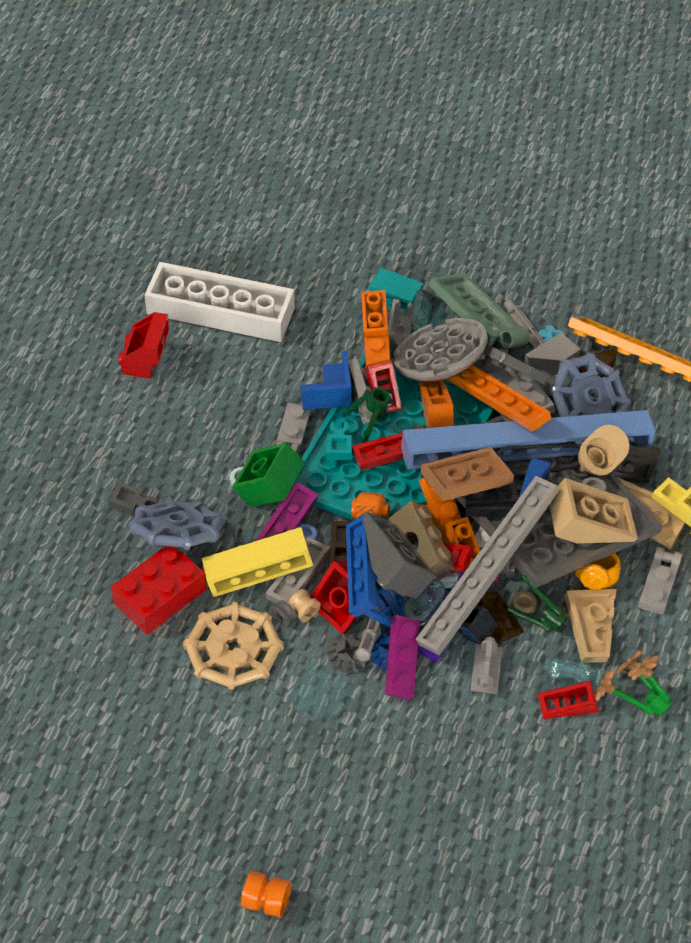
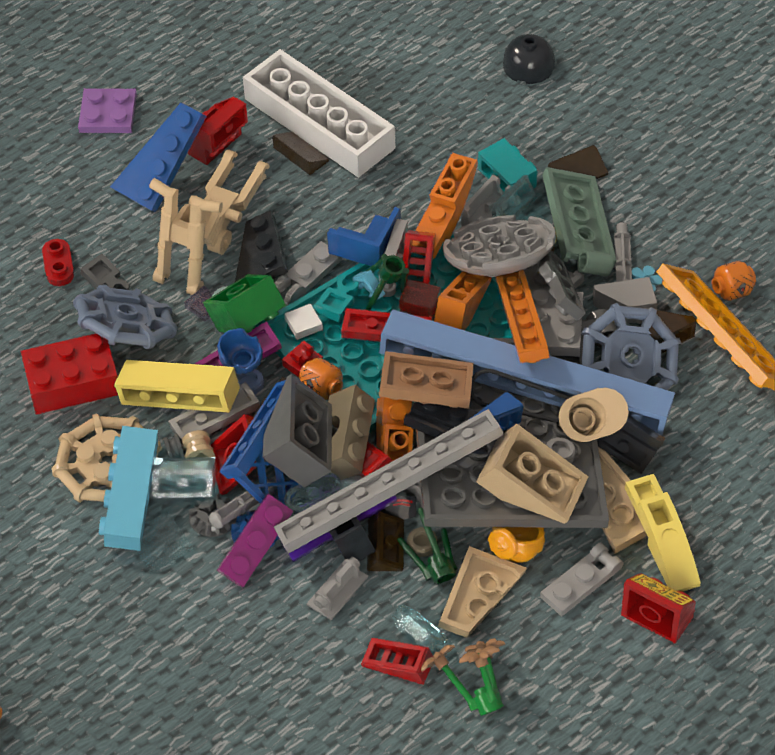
camera: 30 degrees right, 0 degrees up
(38, 365) = (107, 111): none -> medium lavender plate
(80, 502) = (57, 260): none -> red plate
(119, 389) = (160, 157): none -> blue wing
(189, 420) = (202, 219): none -> tan piece
(220, 340) = (299, 152): none -> dark brown slope
(223, 490) = (195, 303): none -> clear purple tile
(246, 428) = (261, 248): none -> black wing
(277, 659) = (130, 488): none -> medium azure brick
(294, 513) = (239, 351): none -> blue hair
(312, 632) = (184, 477): none -> clear light blue brick
(322, 470) = (303, 321): none -> white tile
(341, 500) = (299, 356): none -> red tile
(352, 201) = (529, 59): none -> black cylinder
(354, 419) = (368, 281): none -> medium azure tile
(406, 416) = (419, 299): none -> clear red brick
(449, 264) = (584, 161): none -> dark brown slope
(618, 312) = (734, 280): none -> orange head

